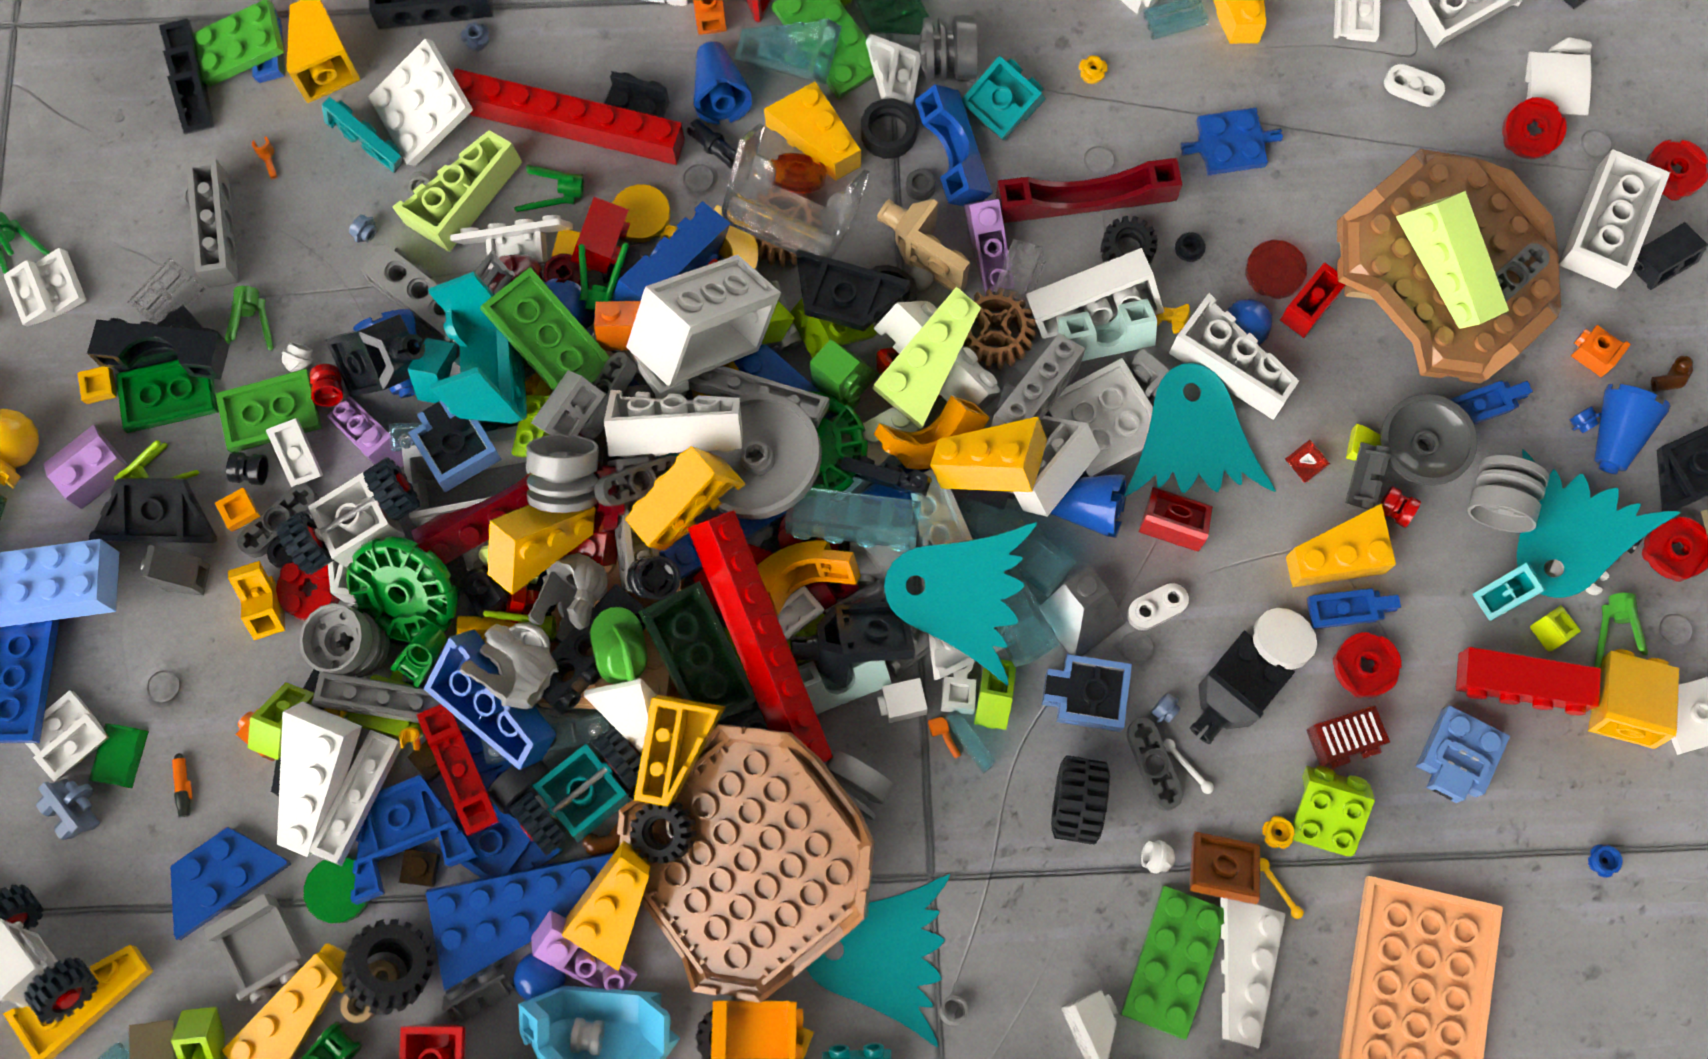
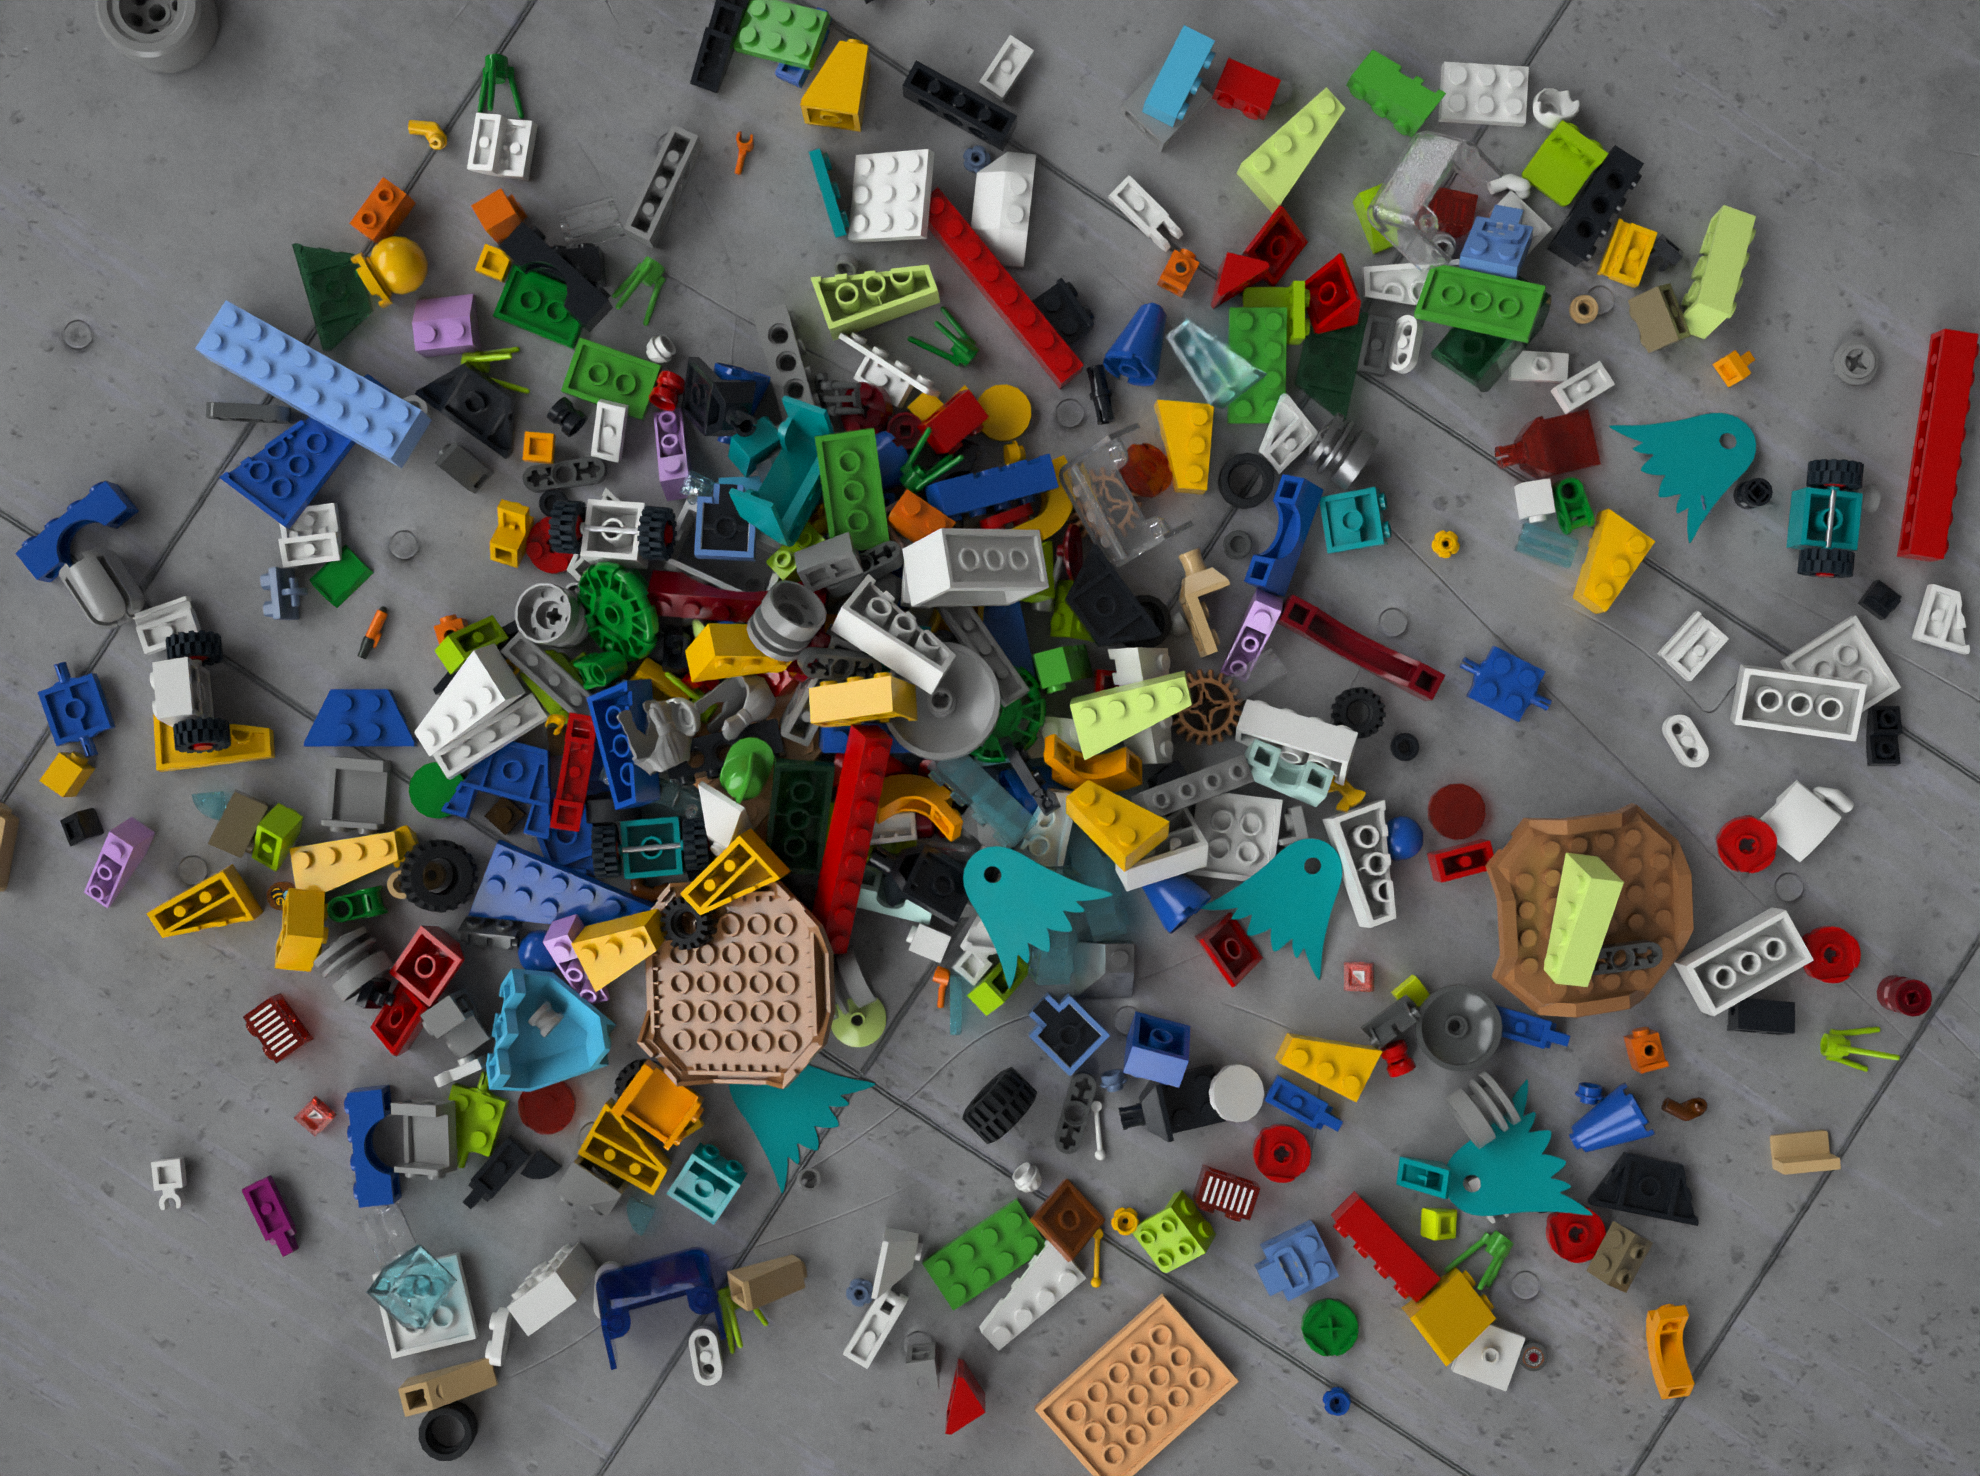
camera: 30 degrees right, 15 degrees up
(71, 334) = (499, 214): none -> orange brick
(363, 228) = (778, 273): sand blue plate -> none
(525, 52) = (1004, 206): none -> white wedge
(653, 577) = (802, 742): black wheel -> none
(780, 273) = (1071, 551): none -> dark red dish
(908, 827) = (864, 1034): none -> yellowish green dish
(1159, 606) = (1165, 1003): white plate -> none
(1184, 645) = (1157, 1049): none -> blue brick
(1540, 795) = (1329, 1327): none -> green tile

